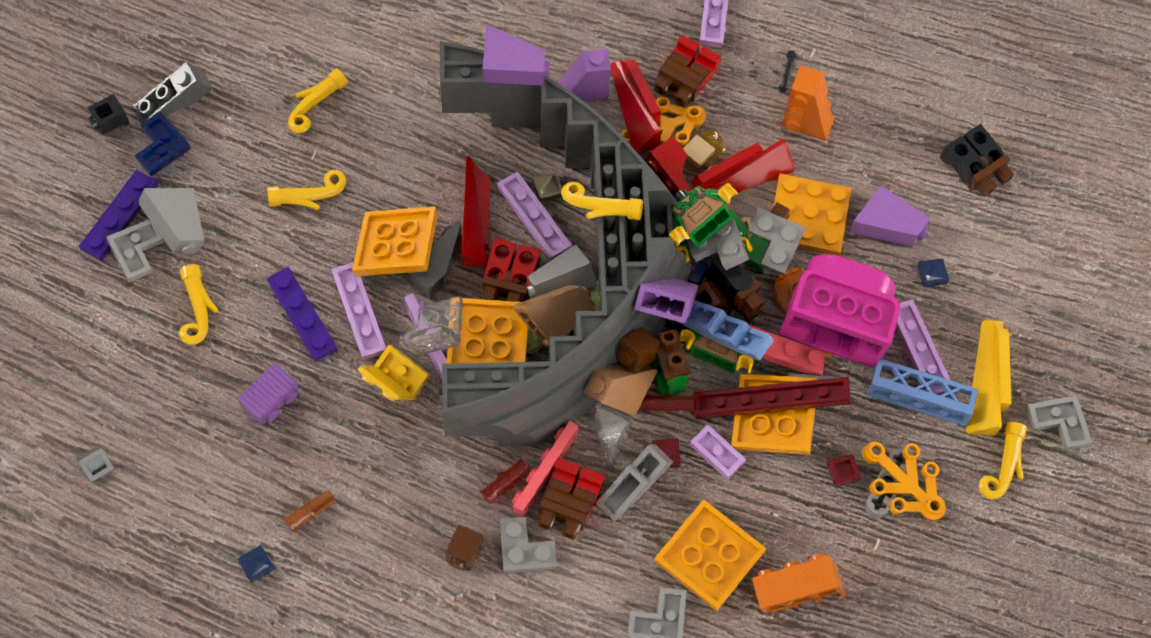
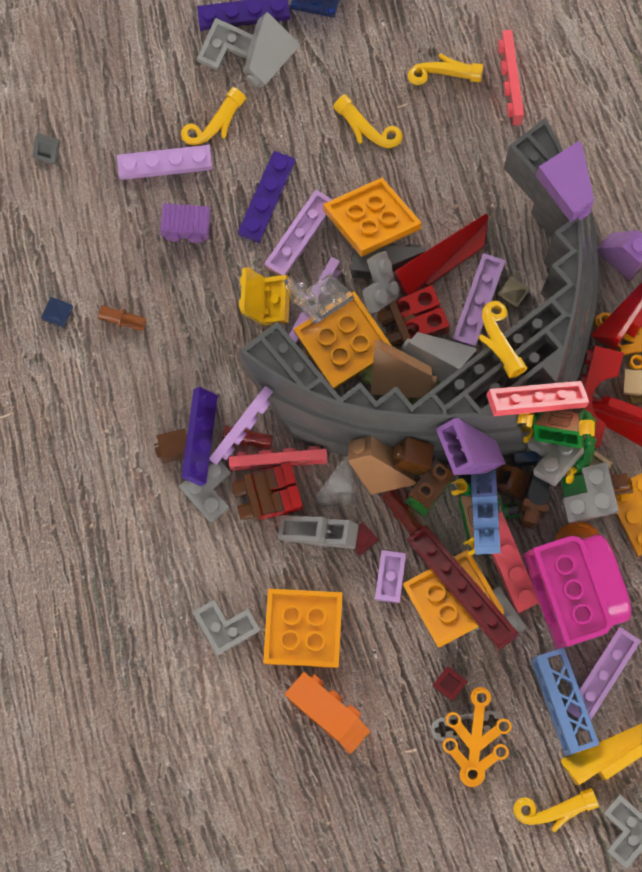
camera: 60 degrees right, 10 degrees up
(196, 374) = (164, 162): none -> lavender plate
(365, 56) = (509, 69): none -> coral plate
(468, 274) = (384, 288): none -> light grey plate
(475, 517) = (199, 436): none -> dark purple plate
(499, 477) = (247, 420): none -> lavender plate
(672, 213) = (537, 398): none -> coral plate

